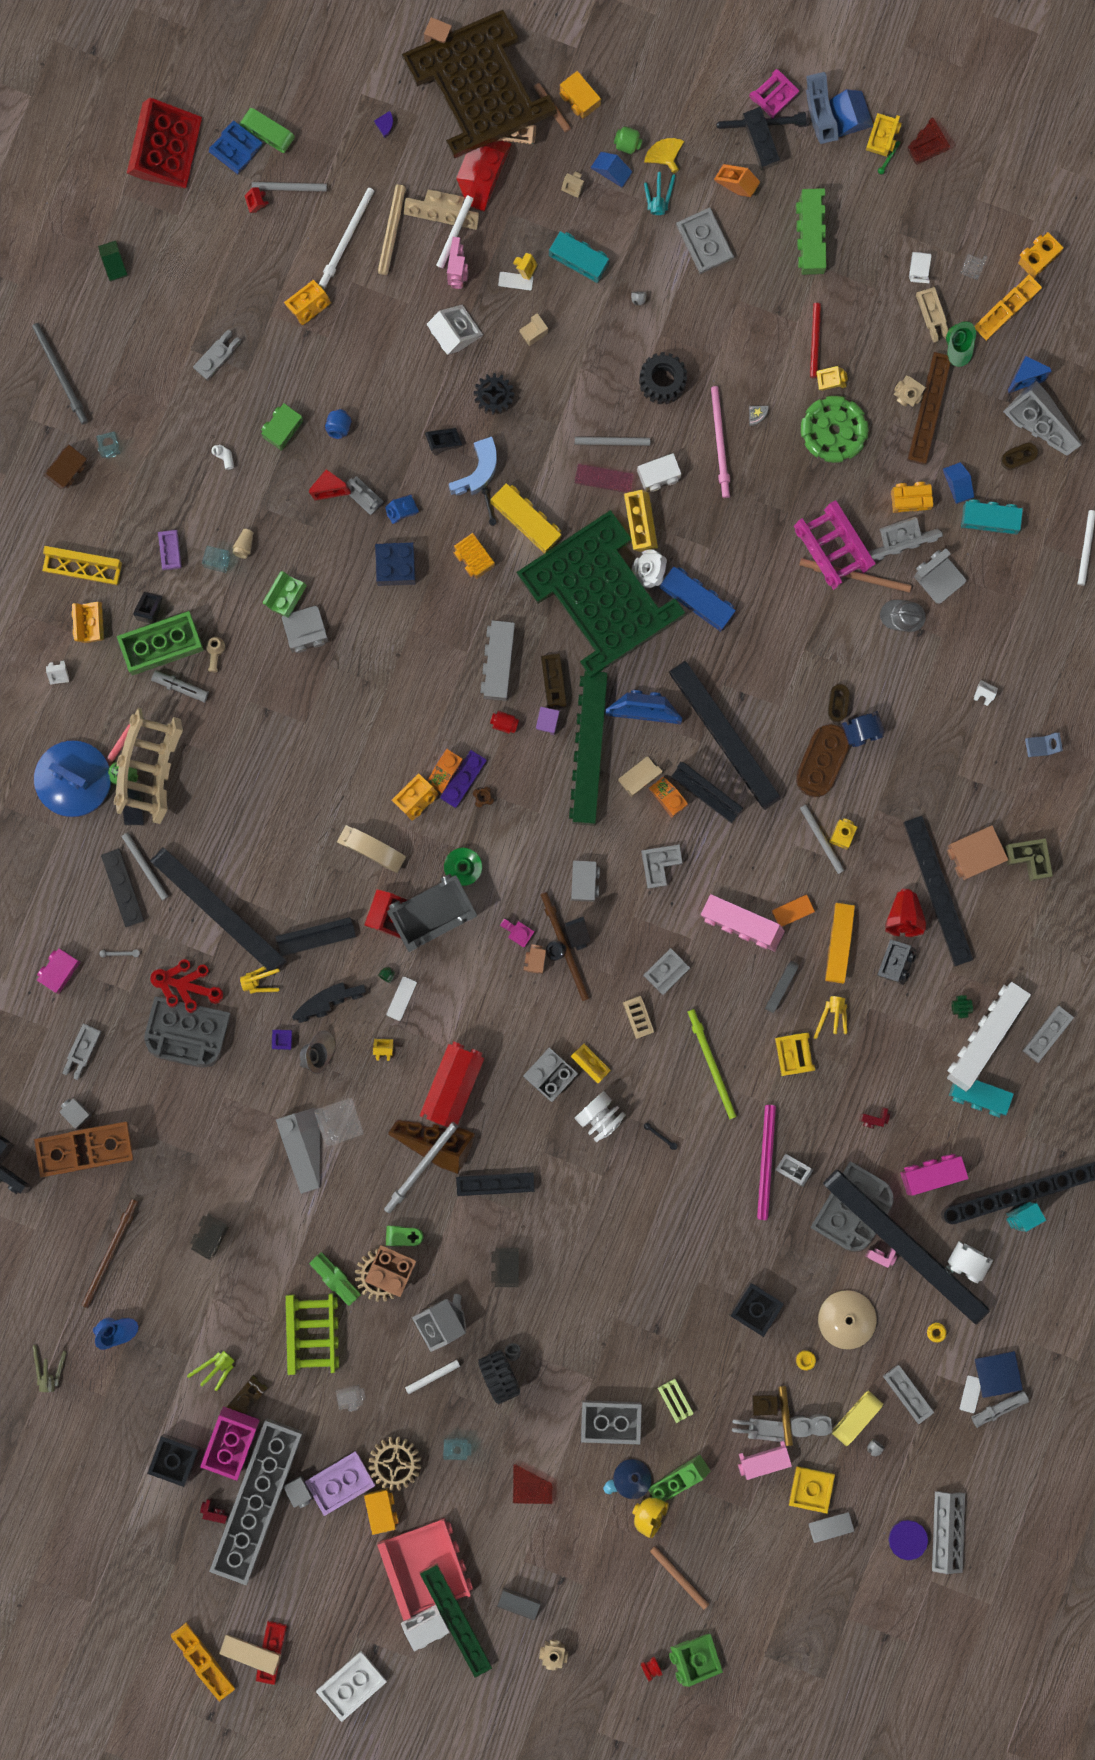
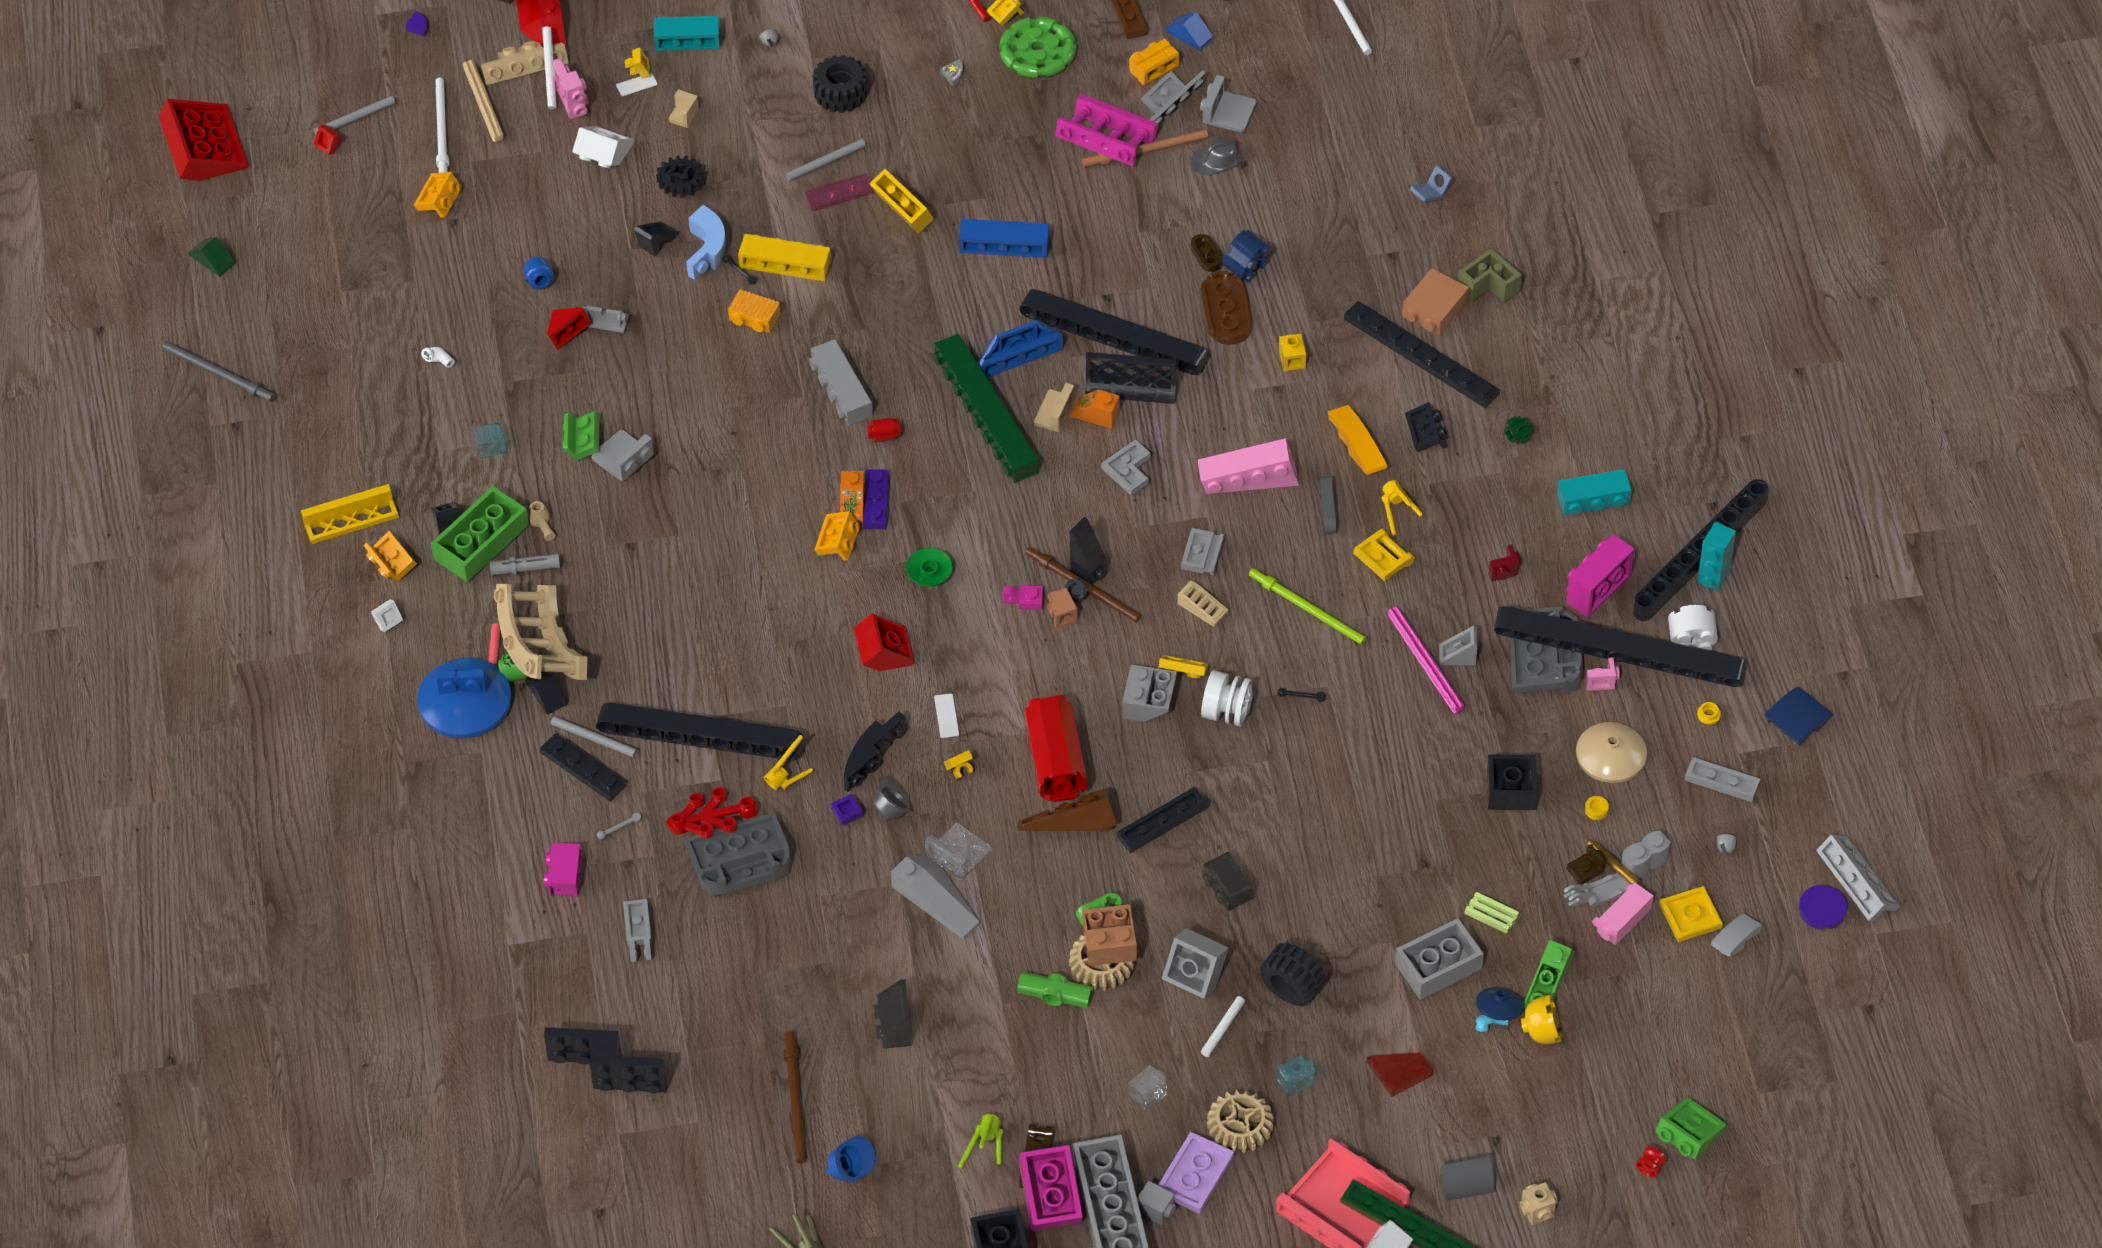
camera: 25 degrees left, 30 degrees down
(65, 467) = (277, 439): reddish brown brick -> none
(75, 1113) = (669, 986): light grey brick -> none
(84, 1149) = (702, 1007): dark orange bracket -> none
(110, 450) = (313, 404): clear light blue bracket -> none
(169, 550) = (435, 458): medium lavender plate -> none
(216, 356) = (373, 281): light grey hinge -> none
(235, 147) = (277, 110): blue slope -> none
(243, 545) = (509, 417): tan cone -> none
(267, 130) = (301, 81): bright green beam -> none
(281, 426) = (481, 302): bright green brick -> none
(294, 1324) = (1052, 1070): lime fence -> none
(316, 936) = (819, 702): black fence -> none
(371, 848) = (823, 590): tan arch -> none
(380, 1511) = (1257, 1173): light orange brick -> none
(387, 974) = (920, 701): dark green hinge -> none
(395, 564) = (678, 355): dark blue brick -> none
(399, 1195) = (1069, 879): light grey bar -> none
(401, 508) = (649, 310): blue bracket -> none
(431, 913) = (929, 612): dark grey windscreen -> none
(479, 801) = (906, 497): reddish brown plate -> none
(547, 720) = (926, 402): medium lavender panel -> none
(553, 680) = (908, 373): dark brown plate -> none
(583, 881) = (1059, 515): light grey brick -> none
(599, 592) = (902, 275): dark green piece -> none
(657, 569) = (947, 237): white plate -> none
(659, 472) = (891, 155): white brick -> none
(679, 1577) = (1616, 1068): nougat bar -> none
(724, 478) = (956, 133): bright pink bar -> none
(793, 911) = (1296, 435): orange tile -> none
(822, 839) = (1269, 367): light grey bar -> none
(857, 1418) = (1687, 826): light yellow beam -> none
(906, 915) = (1406, 384): red cone -> none
(970, 1394) = (1785, 751): white sticker -> none
(986, 690) = (1342, 172): white tile -> none
(988, 1036) = (1562, 435): white brick -> none
(991, 517) = (1242, 40): teal brick -> none
(996, 1411) = (1818, 751): light grey pin -> none
(1047, 1034) = (1619, 411): light grey plate -> none

